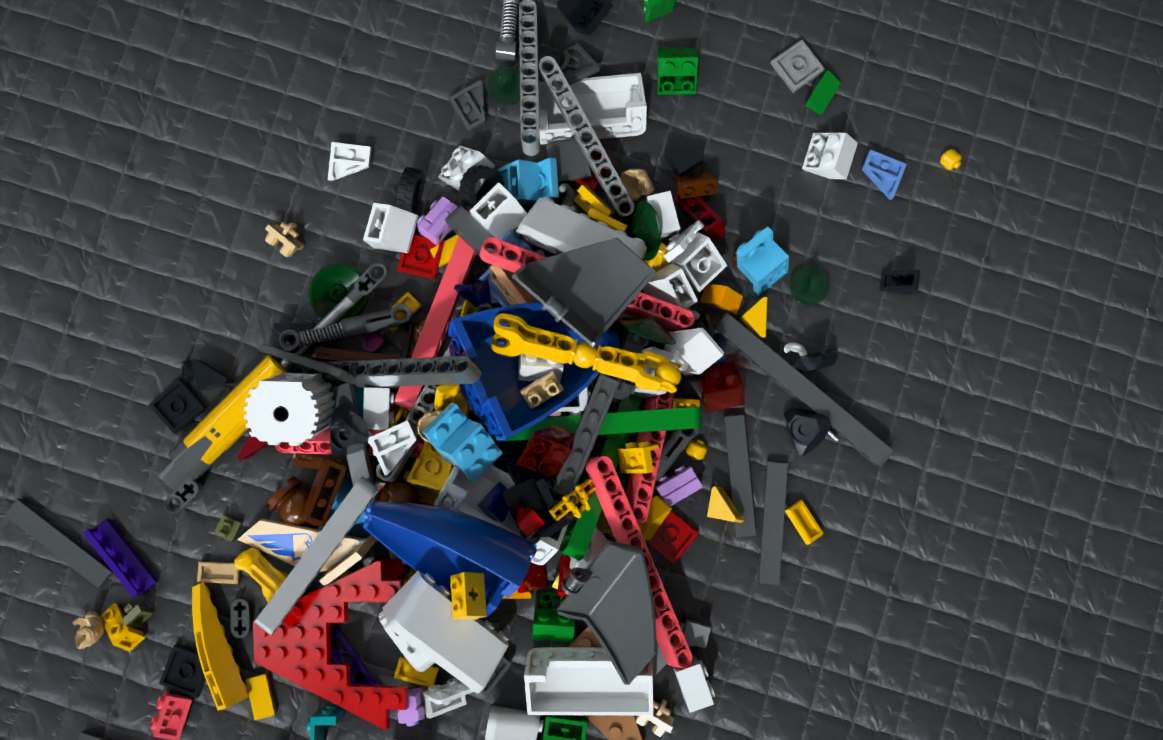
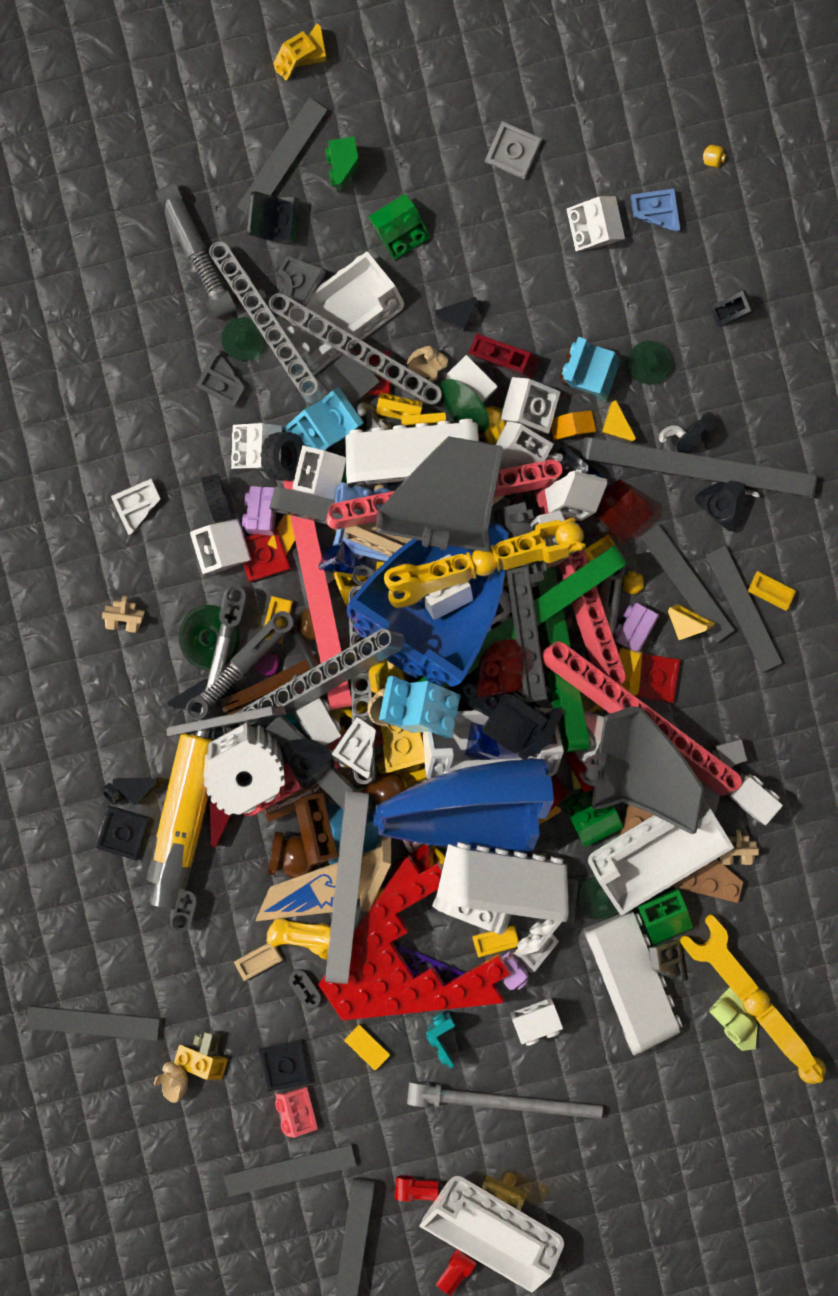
camera: 25 degrees left, 5 degrees up
(121, 558) = (160, 1000): dark purple fence -> none
(214, 652) = (301, 1031): yellow slope -> none
(228, 528) = (241, 915): olive tile -> none
(468, 596) = (506, 840): yellow brick -> none
(514, 688) = (594, 900): none -> clear green tile
(528, 521) = (522, 741): red piece -> none
(541, 390) = (462, 617): tan hips -> none
(583, 497) = (558, 692): yellow piece -> none
(636, 457) = (583, 626): yellow bracket -> none
(647, 328) = (524, 502): dark green hat -> none
(680, 242) = (503, 397): white wing -> none
(695, 185) = (484, 330): reddish brown bracket -> none
(823, 93) = (553, 163): green slope -> none

